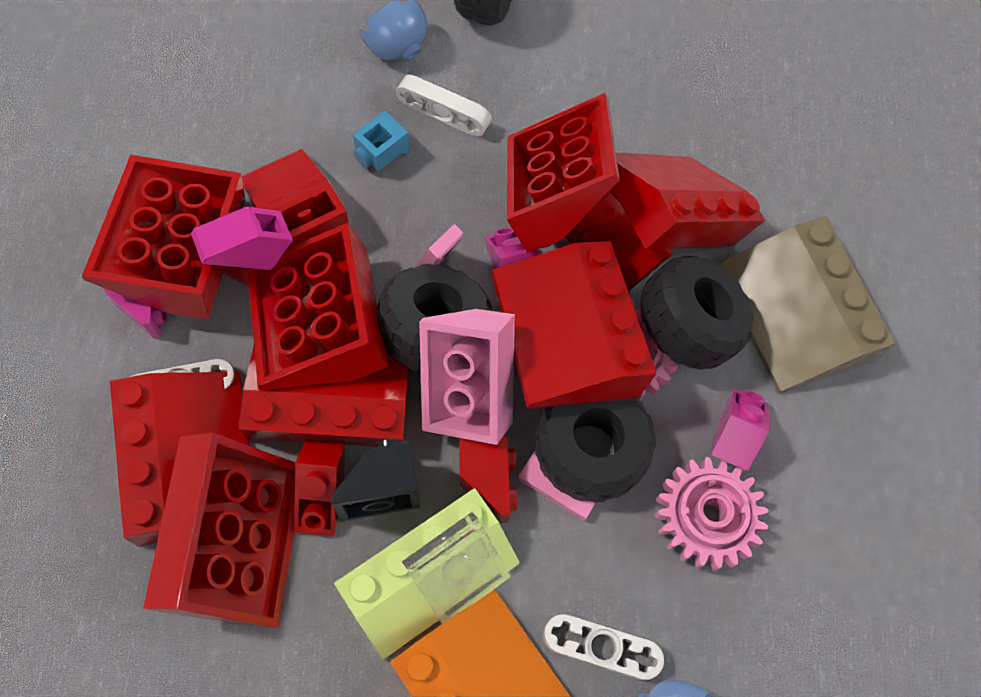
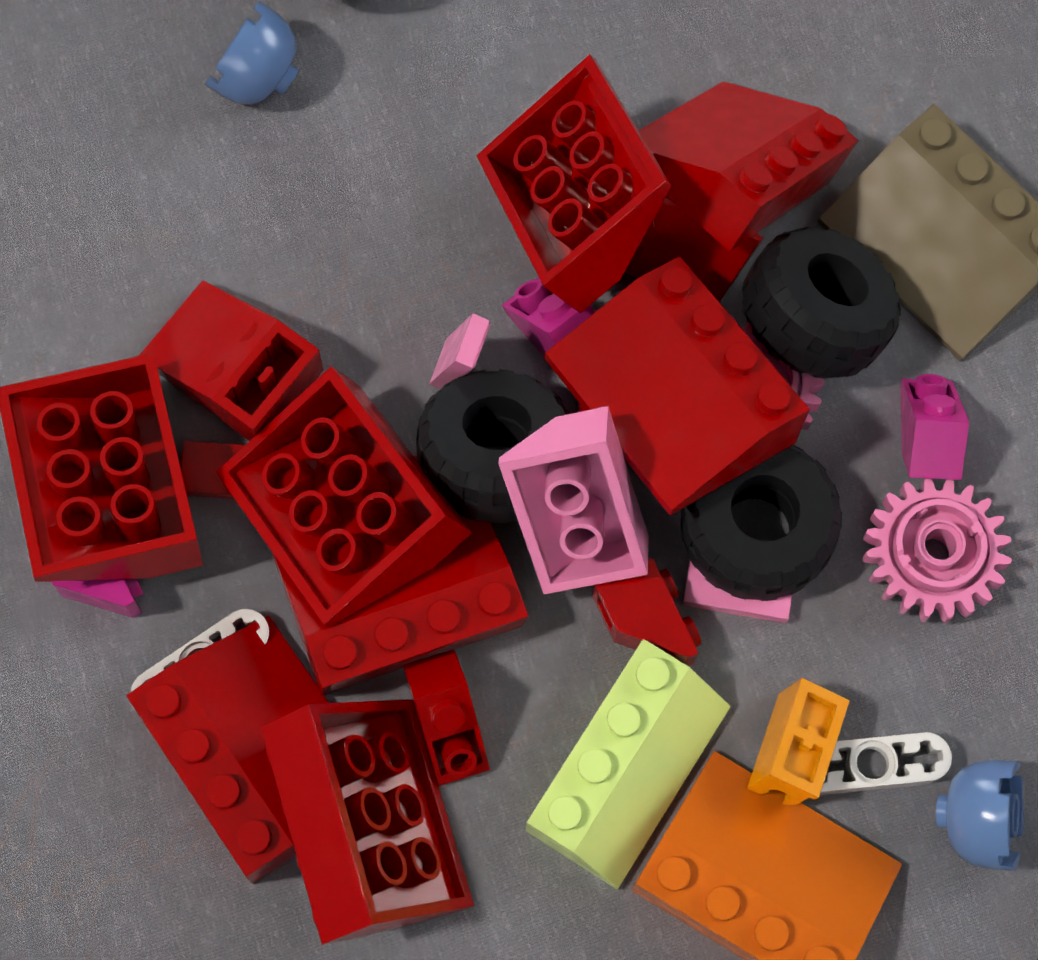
camera: 20 degrees left, 5 degrees up
(243, 239) = (214, 444): dark pink slope -> none
(378, 483) = (528, 678): black slope -> none
(380, 142) = (307, 215): dark azure brick -> none
(443, 105) = (365, 141): white beam -> none
(457, 568) = (664, 743): clear tile -> none
(555, 609) = (799, 742): none -> light orange hinge

